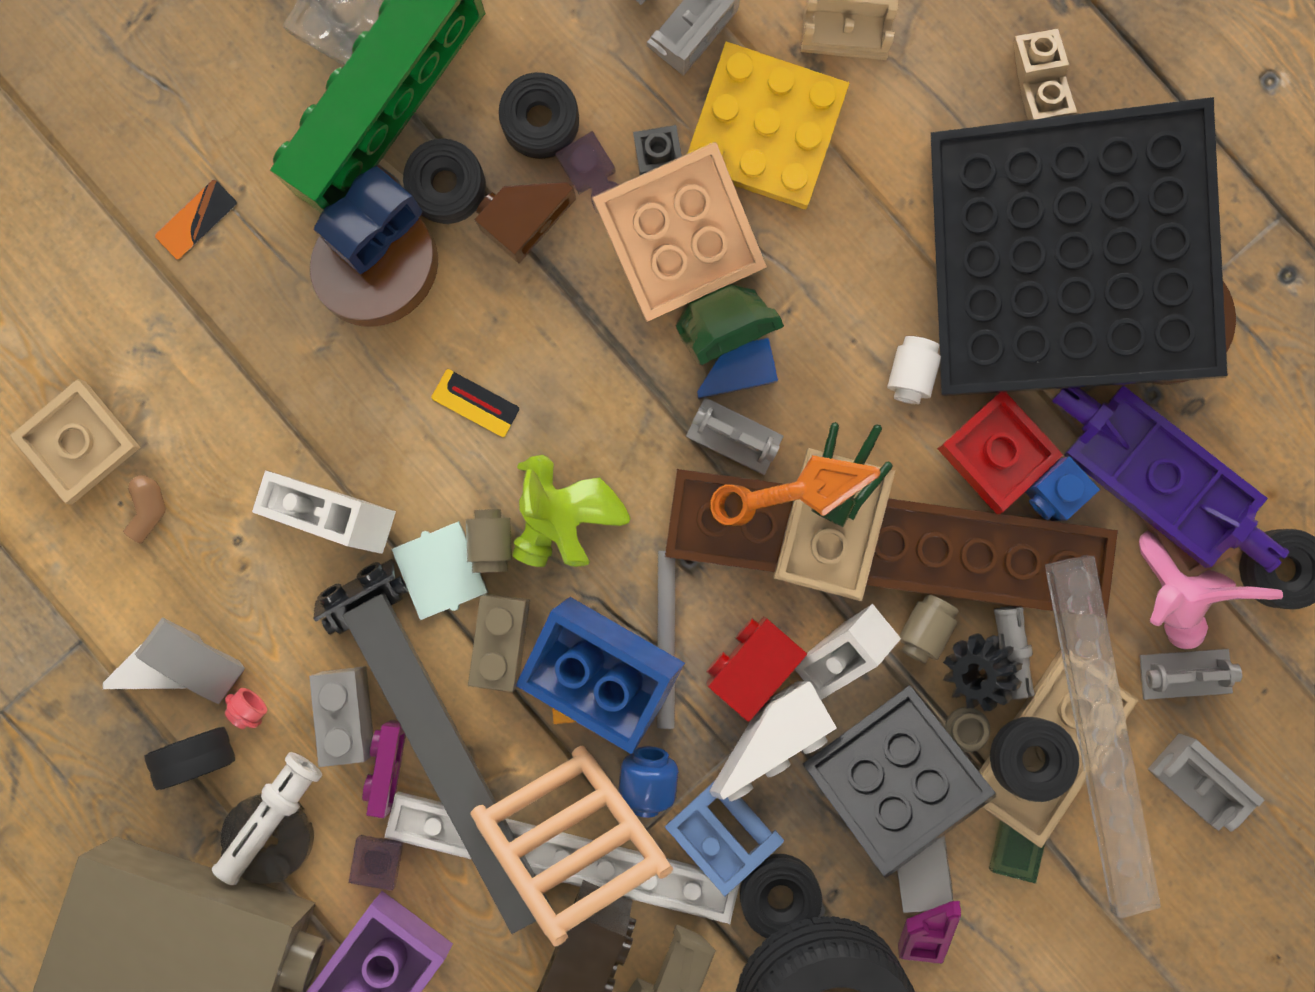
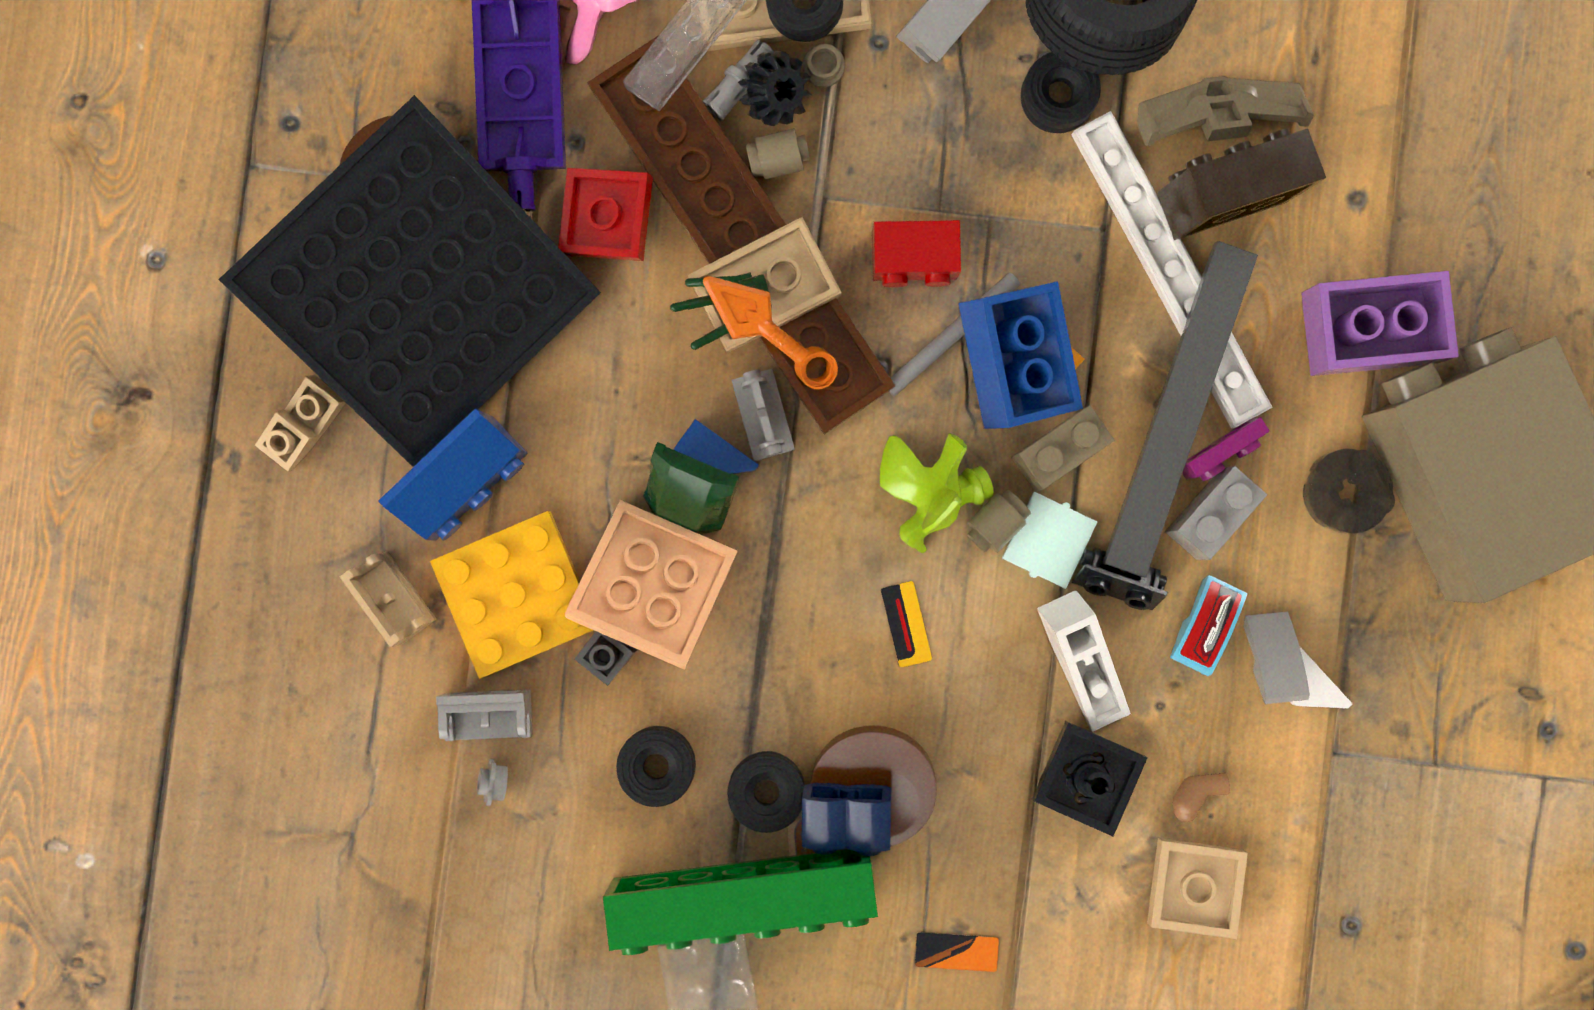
camera: 135 degrees left, 0 degrees up
(189, 758) = (1344, 593): black tyre -> none
(205, 425) = (1104, 784): none -> black plate
(245, 709) = (1273, 588): coral plate -> none
(262, 632) = (1209, 626): none -> slope
(277, 801) = (1316, 502): white pin -> none
(376, 862) = (1295, 397): plate -> none
(523, 215) = (741, 711): reddish brown slope -> none
(533, 888) = (1215, 262): light nougat bar -> none
(587, 165) = (661, 696): plate -> none
(648, 781) = (1064, 255): blue head -> none
(715, 847) = (1067, 170): medium blue plate -> none
(780, 729) = (943, 192): white slope -> none
(848, 652) = (845, 195): white slope -> none
(896, 155) = (455, 477): none -> blue slope
(899, 781) = (905, 79): plate -> none
(914, 369) = (600, 327): white brick -> none
(1061, 490) = (595, 145): blue brick -> none

